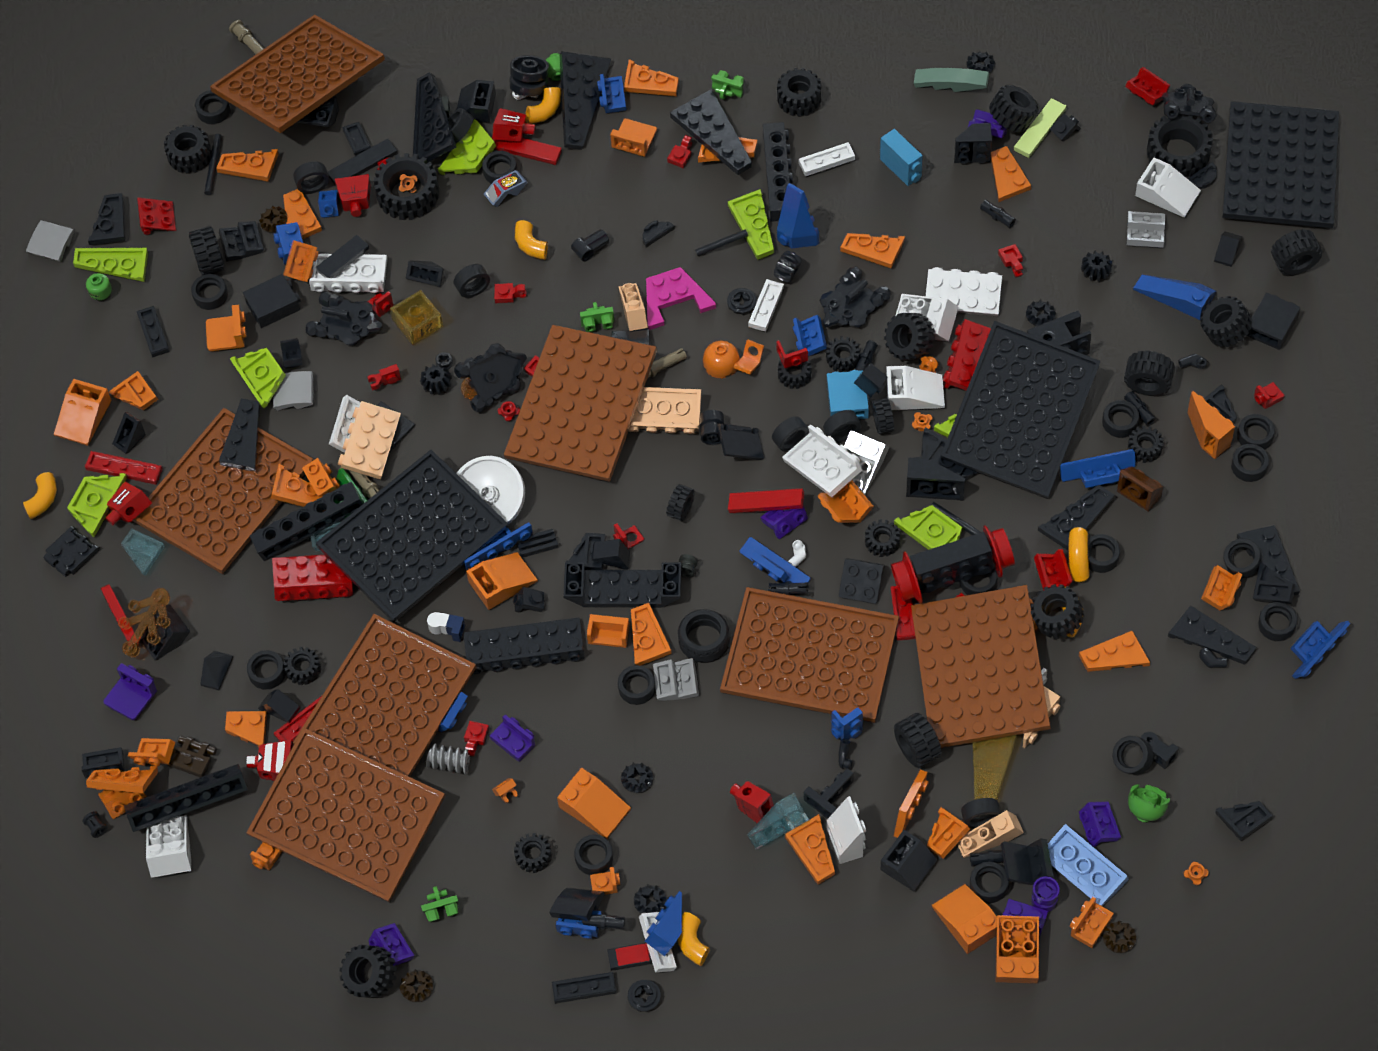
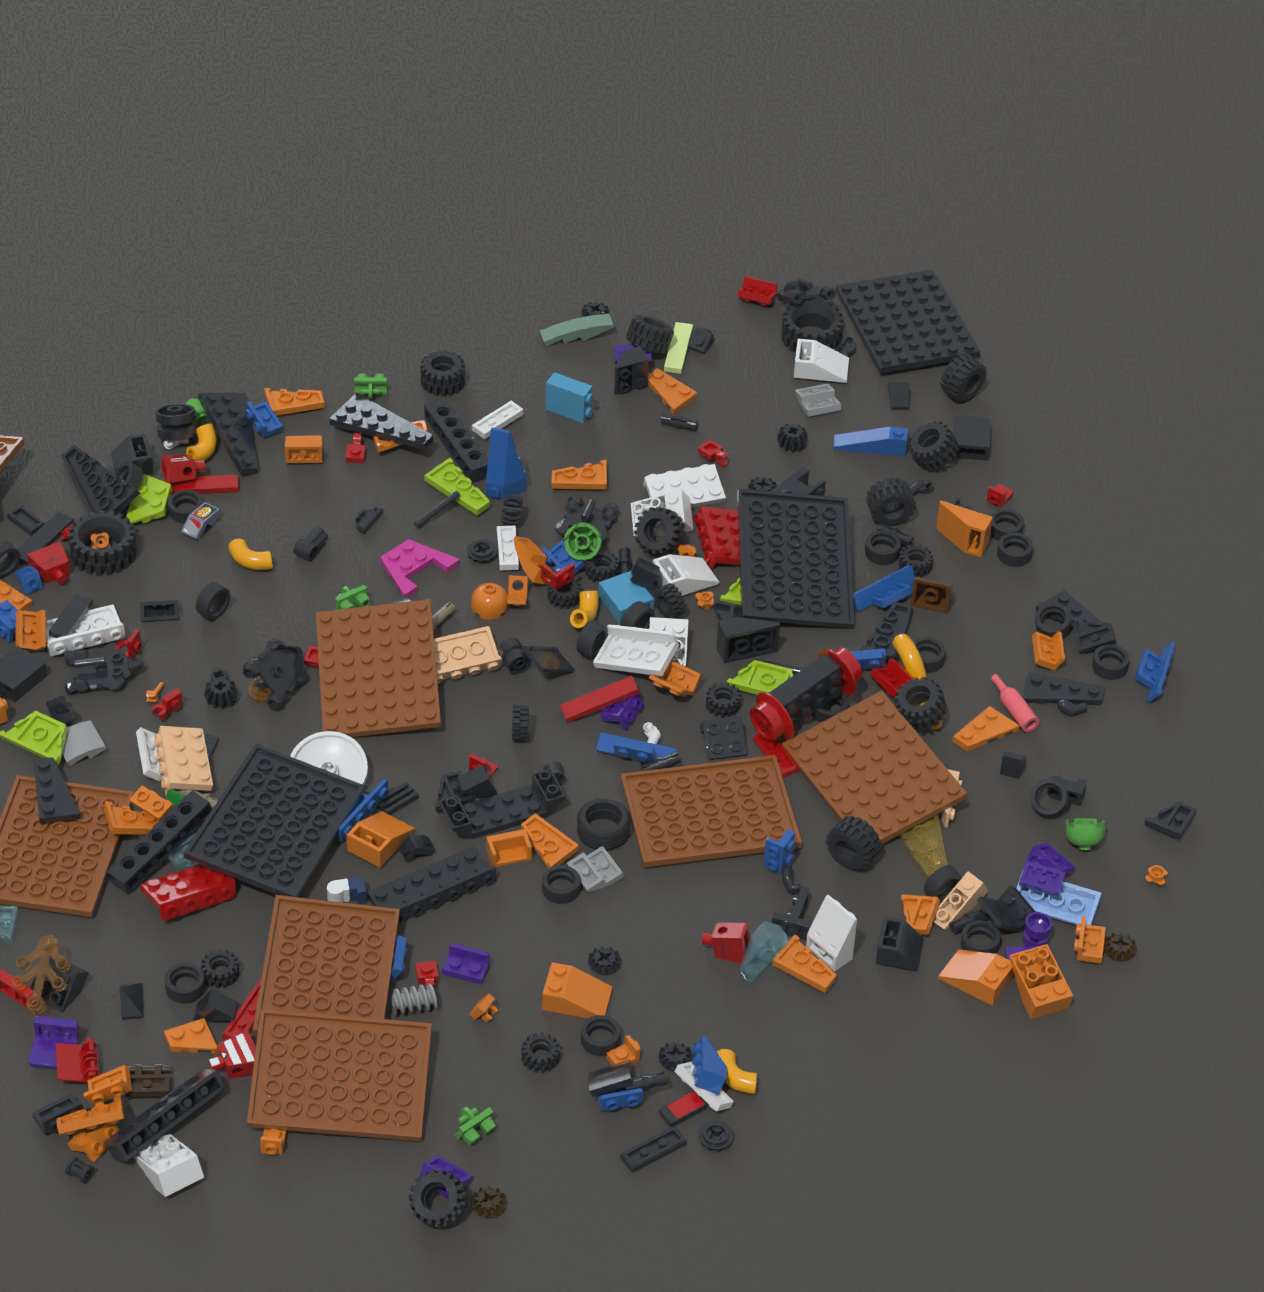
camera: 30 degrees left, 15 degrees down
(140, 717) = (77, 1061): none -> red hinge
(379, 362) = (152, 696): none -> orange hand
(416, 317) = (174, 645): clear yellow brick -> none
(507, 292) = (250, 605): red plate -> none
(508, 406) = (307, 699): red plate -> none
(633, 306) = (382, 582): light nougat slope -> none
(780, 326) = (531, 559): none -> orange slope
(804, 399) = (587, 609): none -> light orange cylinder
(830, 325) = (583, 541): none -> bright green cylinder
(910, 802) = (875, 898): orange wing -> none
(1037, 539) = (871, 658): none -> blue bracket
(1076, 841) = (1042, 878): none -> dark purple bracket
(1121, 701) = (1012, 764): none -> black slope
(1157, 639) = (1016, 705): none -> coral piece

